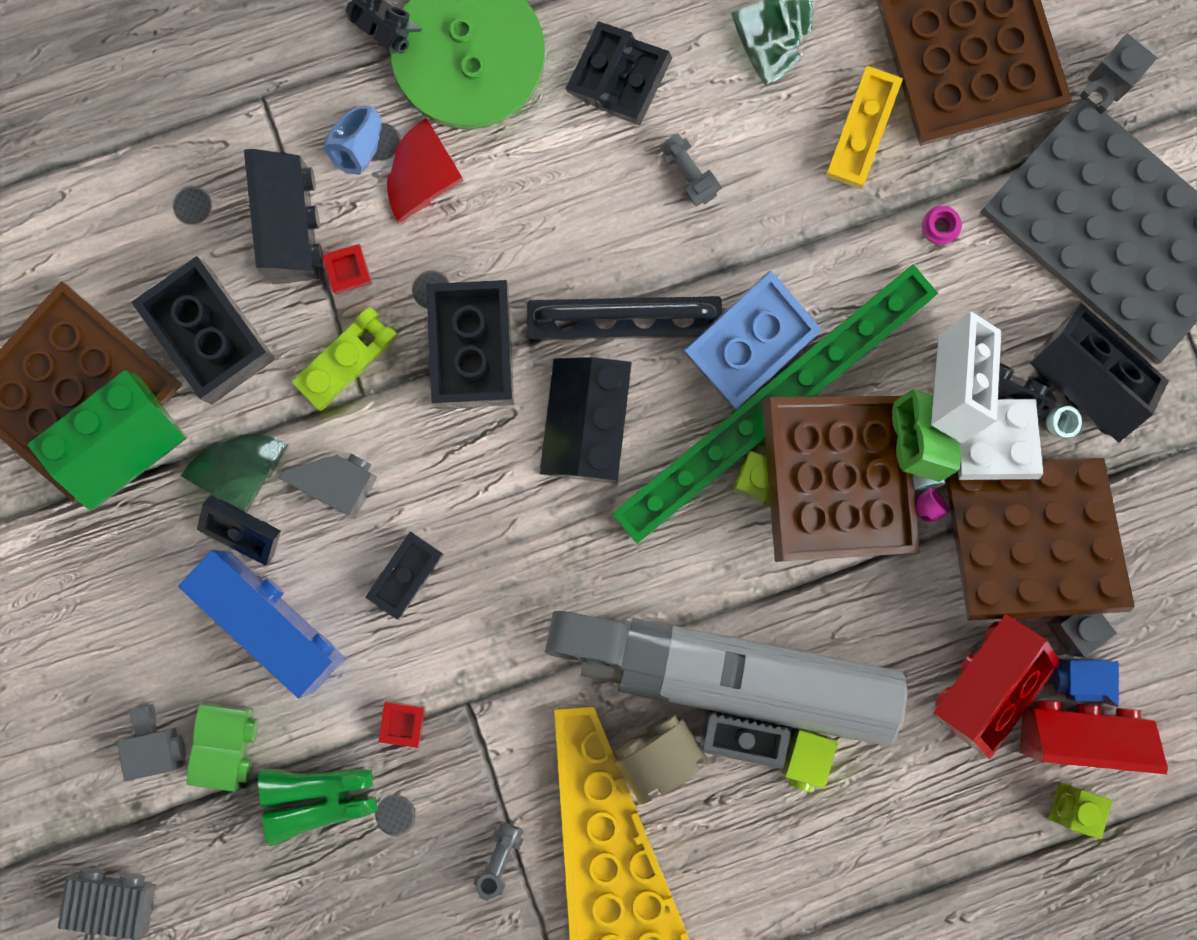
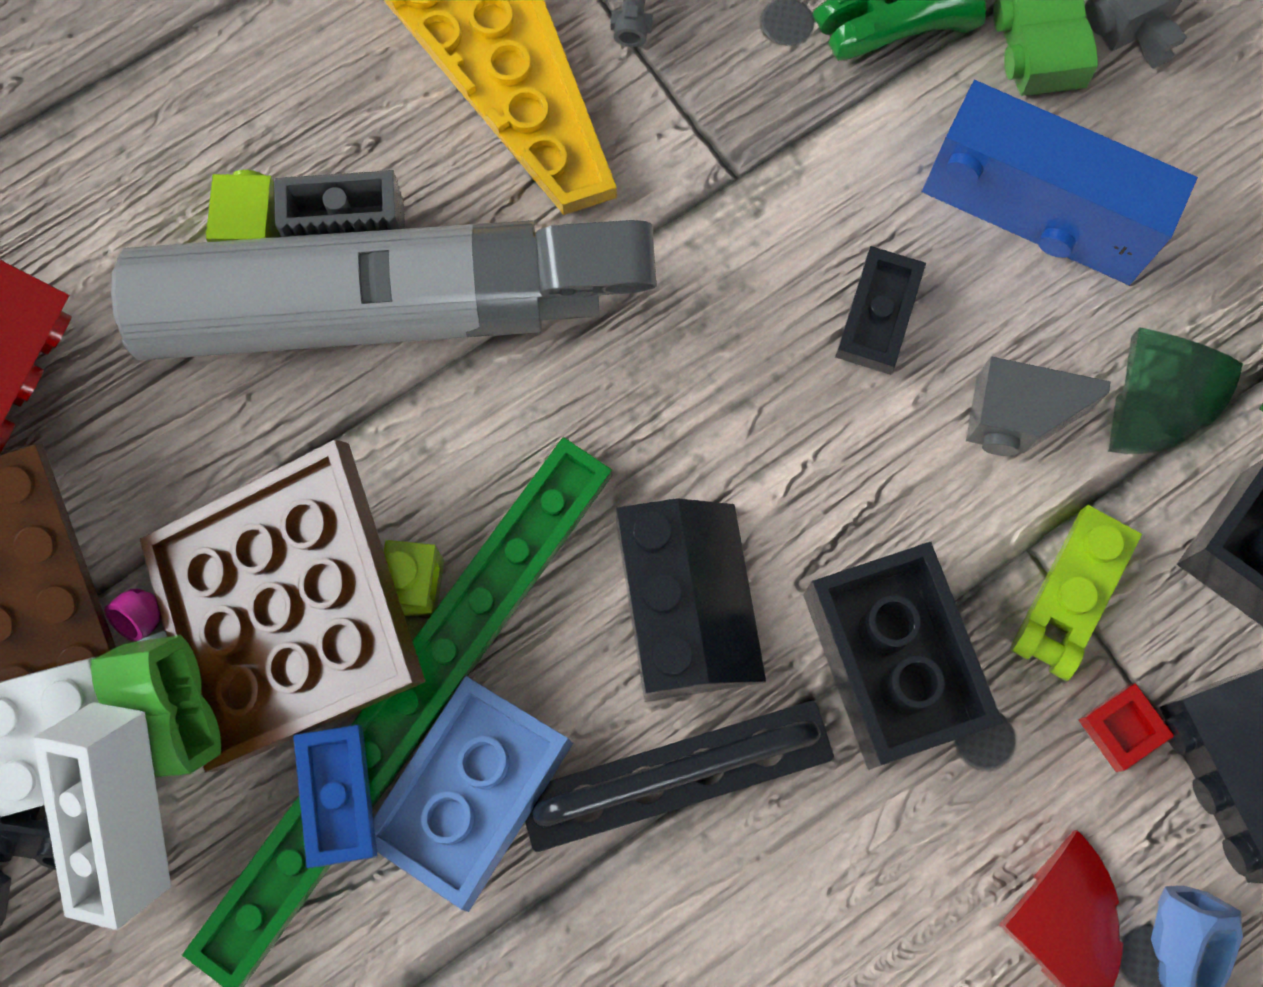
camera: 165 degrees right, 10 degrees down
(238, 530) = (1113, 303): black plate -> none
(402, 724) = (817, 121): red plate -> none
(659, 759) = (452, 153): dark tan brick -> none
(830, 354) = (335, 796): none -> blue plate

